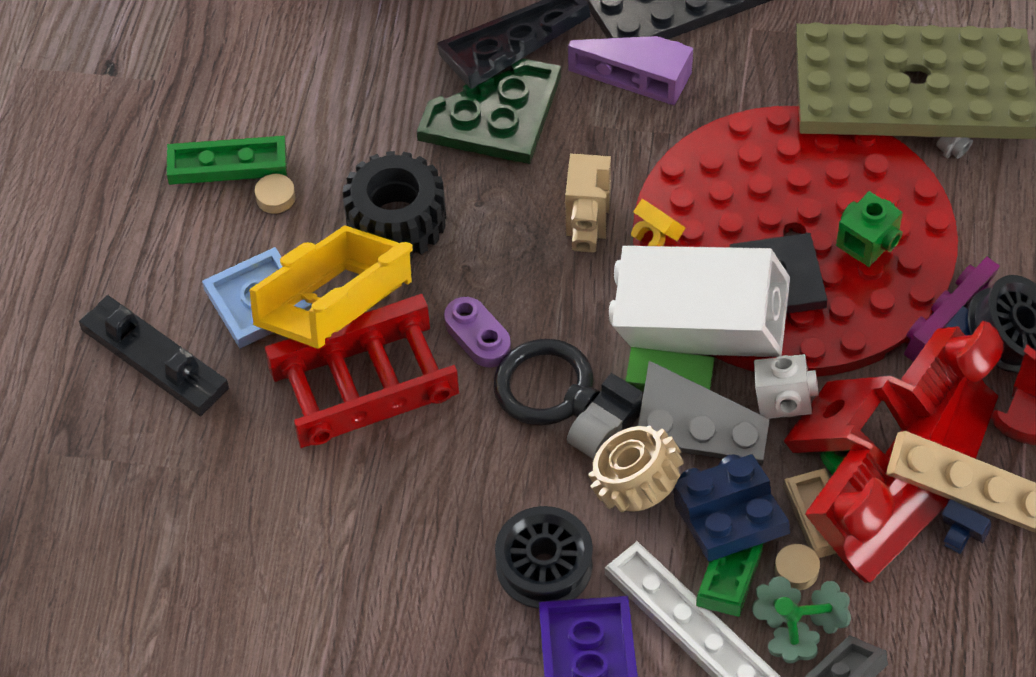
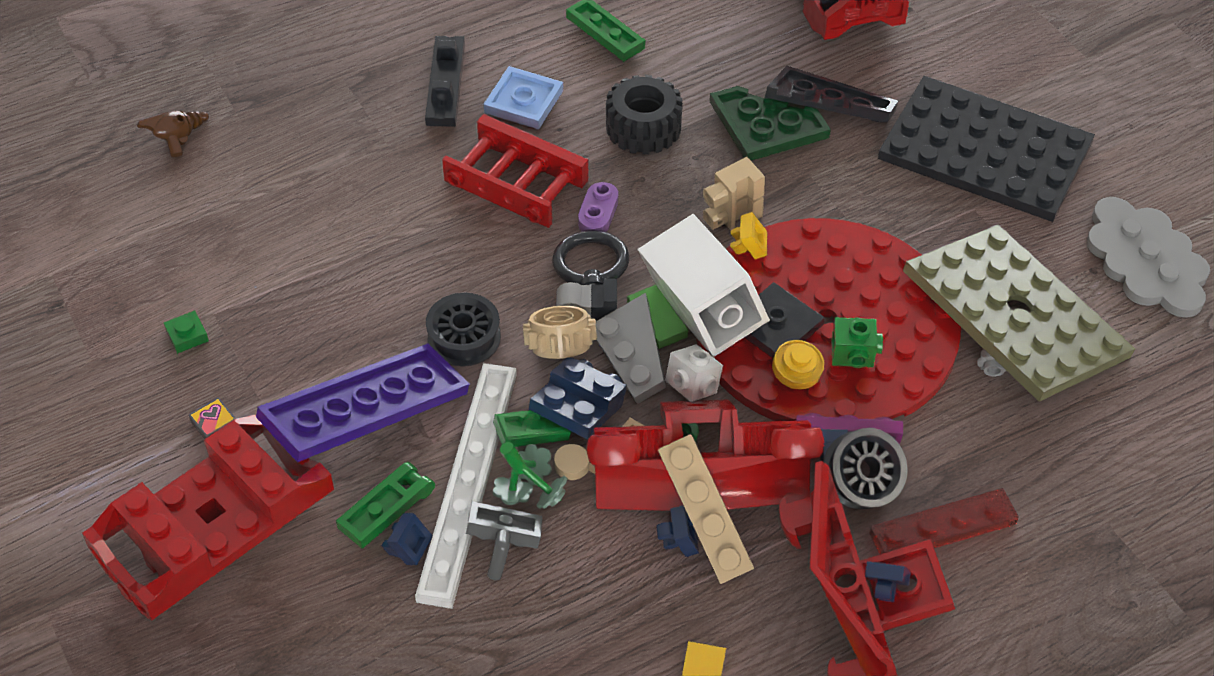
camera: 50 degrees right, 5 degrees down
(275, 193) = (605, 64): tan tile -> none
(377, 260) = (550, 112): yellow piece -> none
(637, 64) = (875, 165): medium lavender slope -> none
(853, 292) = (798, 364): none -> yellow plate

